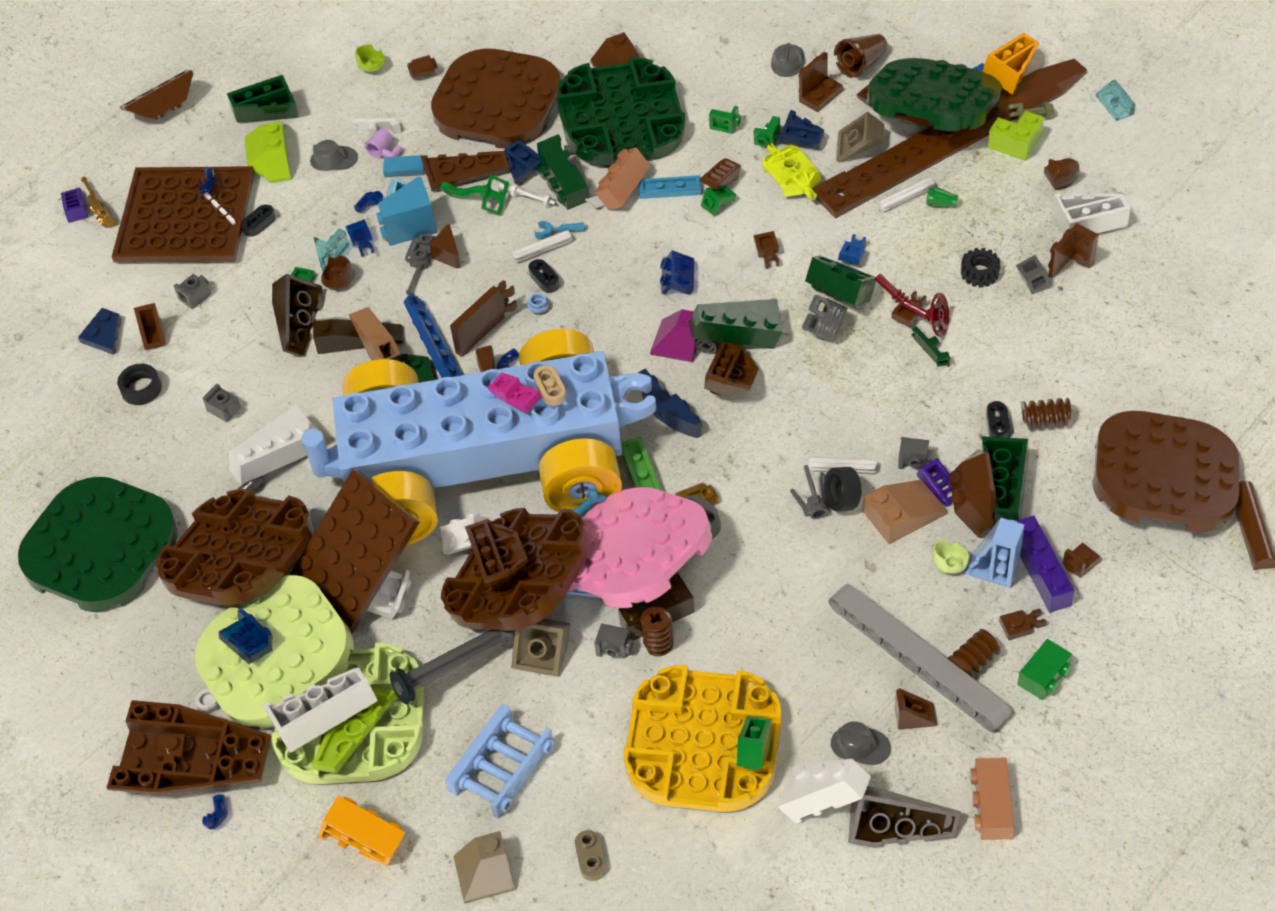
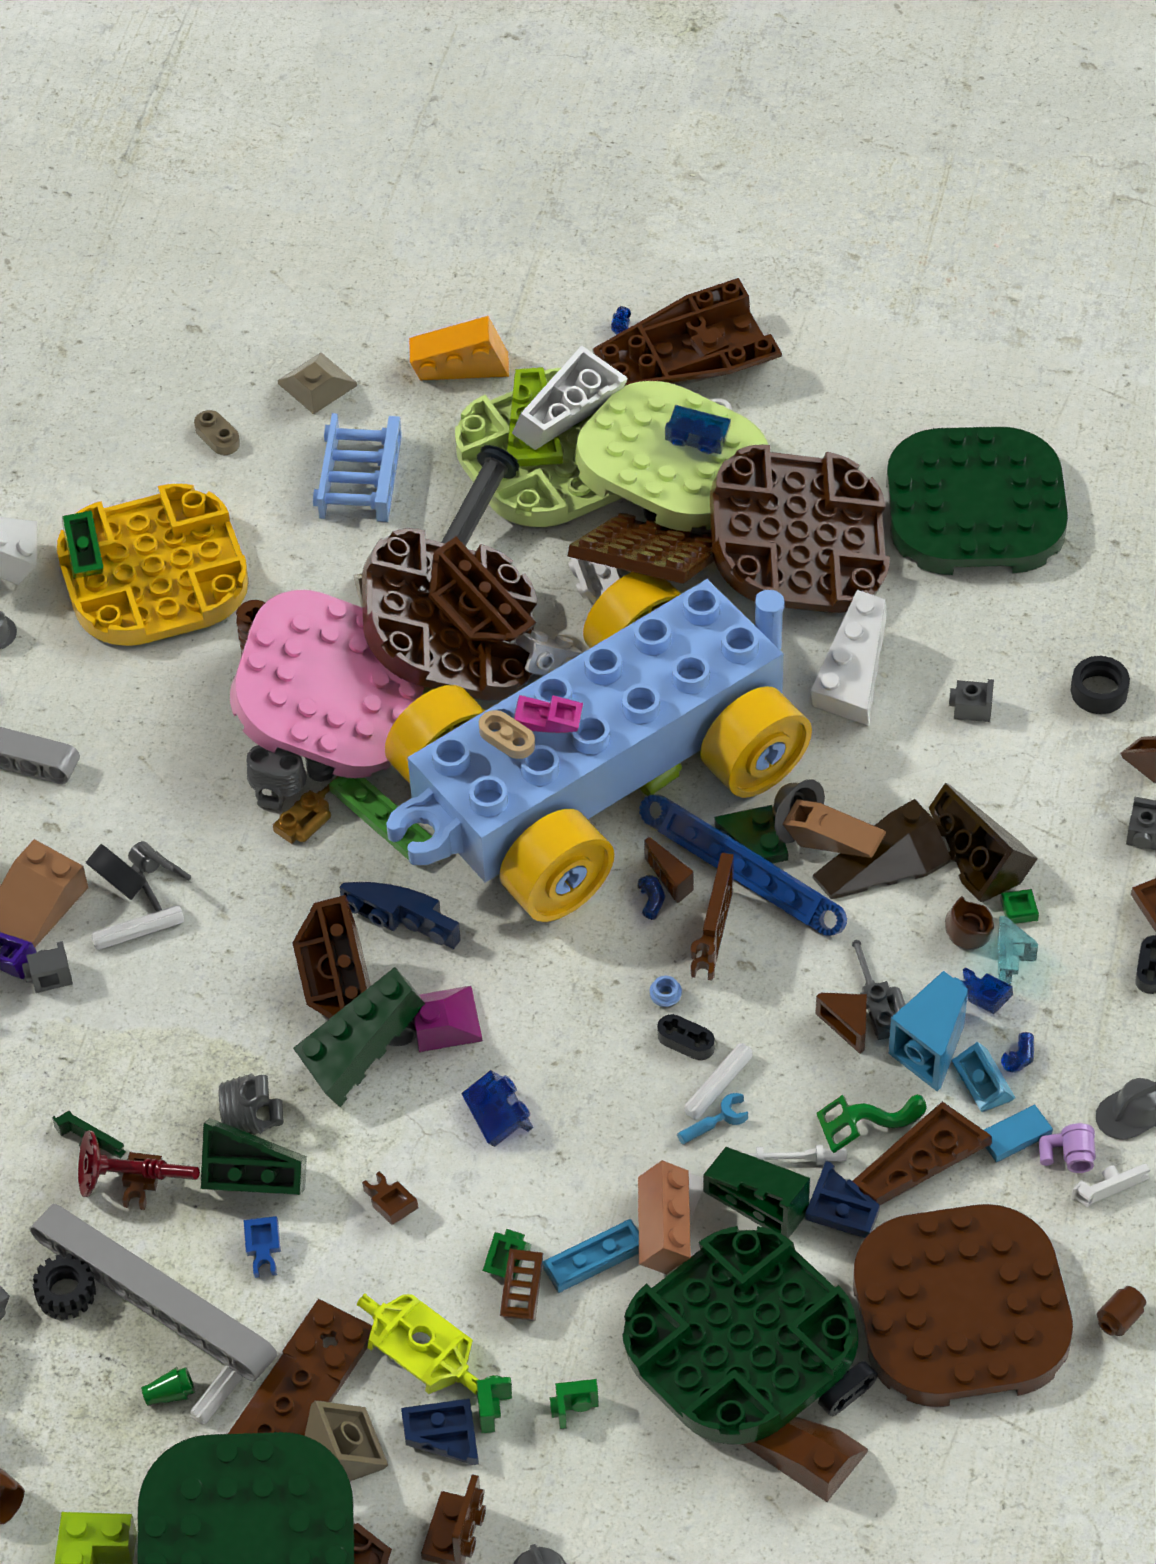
camera: 150 degrees right, 0 degrees up
(931, 242) = (155, 1293): none -> light grey beam

